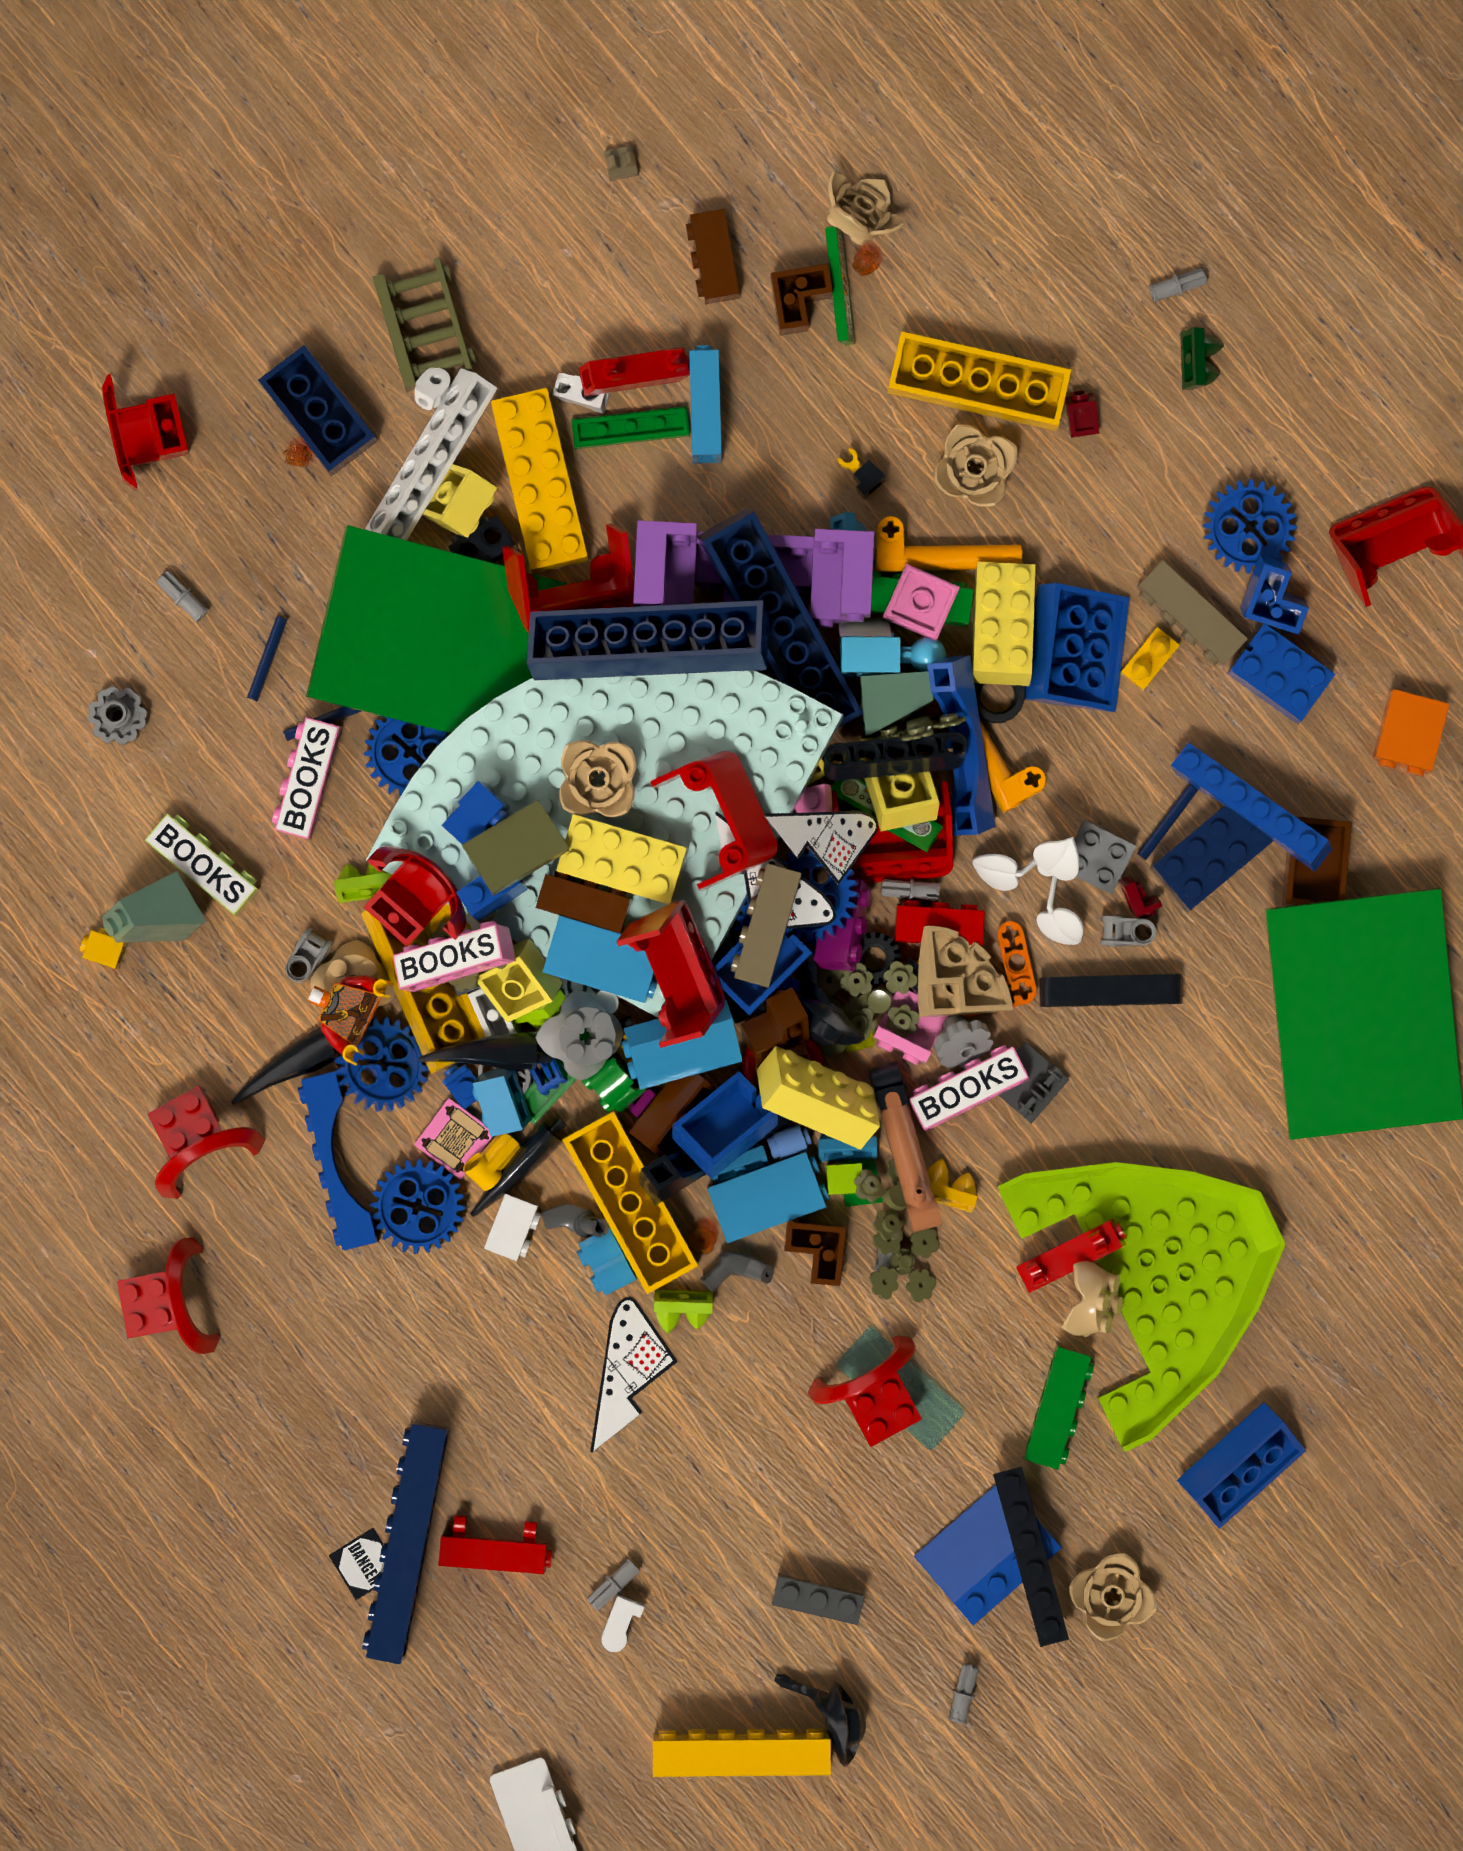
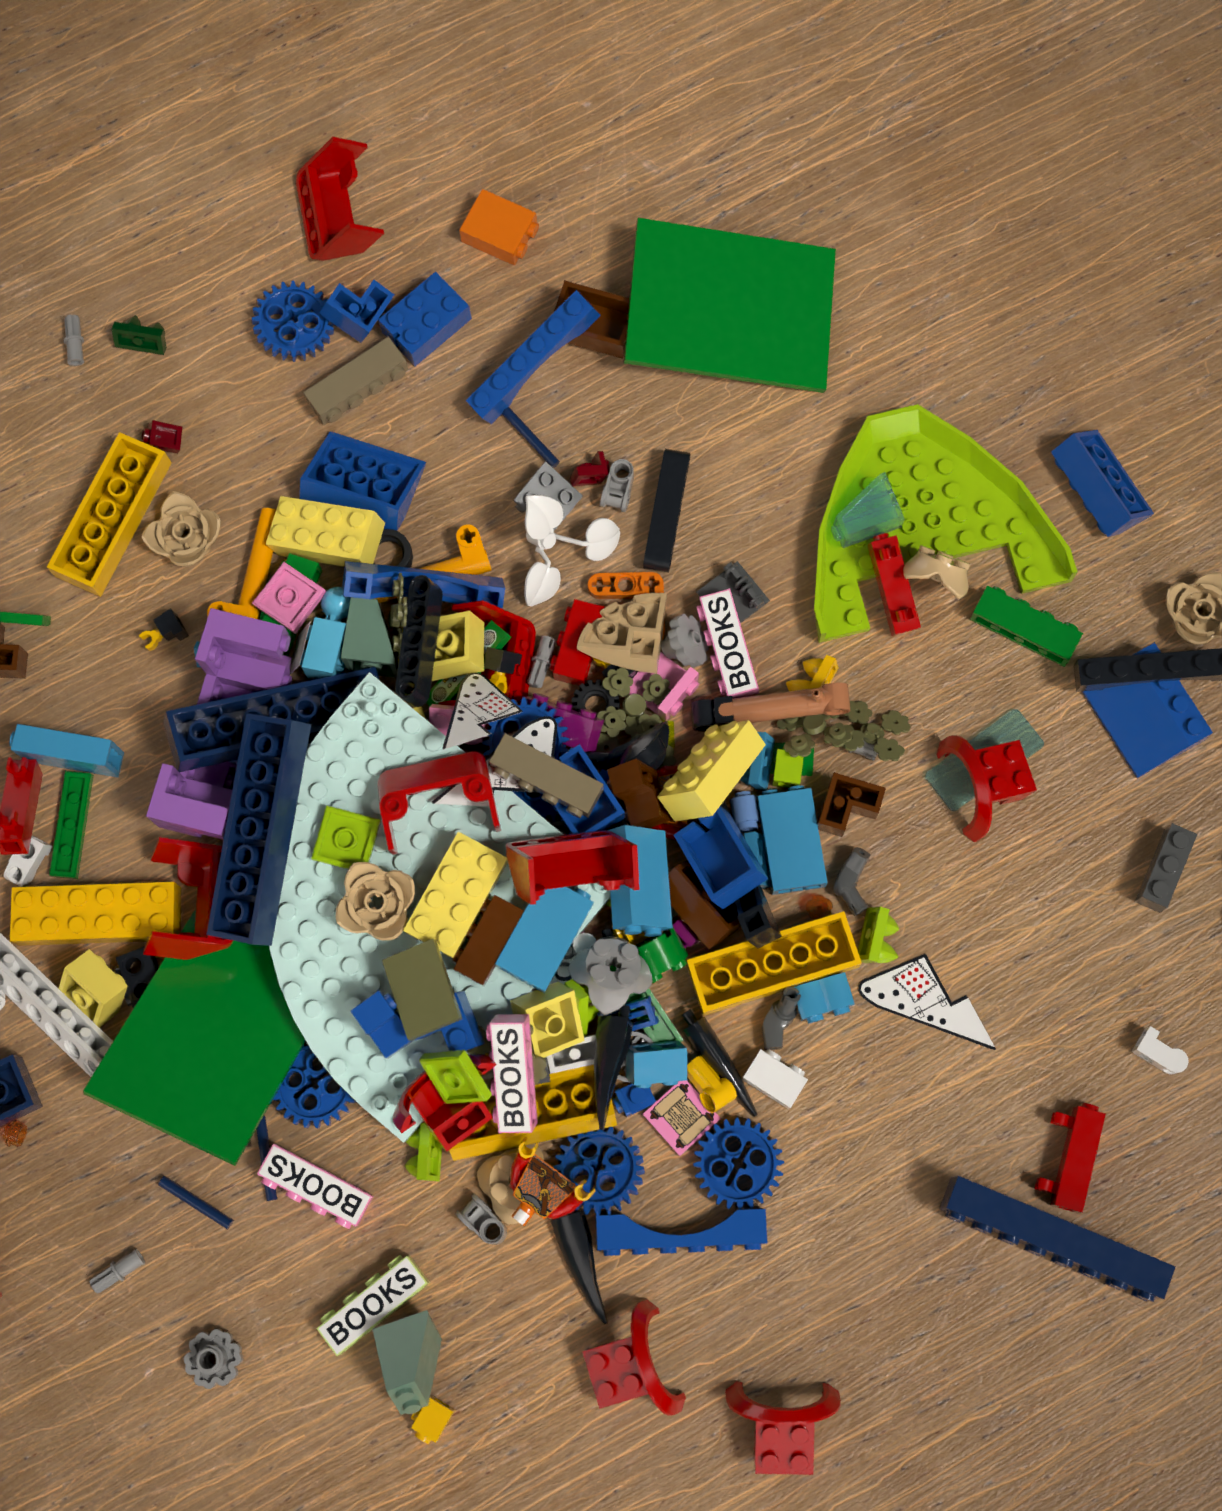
camera: 70 degrees left, 10 degrees down
(359, 1563) = (1064, 1289): sticker -> none
(436, 900) = (455, 1076): none -> lime tile
(613, 1584) = (1123, 1052): light grey axle -> none
(659, 731) = (345, 838): none -> lime tile
(894, 848) = (501, 662): none -> black piece
(1145, 1212) = (869, 514): none -> clear light blue slope
(1150, 658) = (386, 424): yellow tile -> none
(1209, 857) = (568, 405): dark blue brick -> none

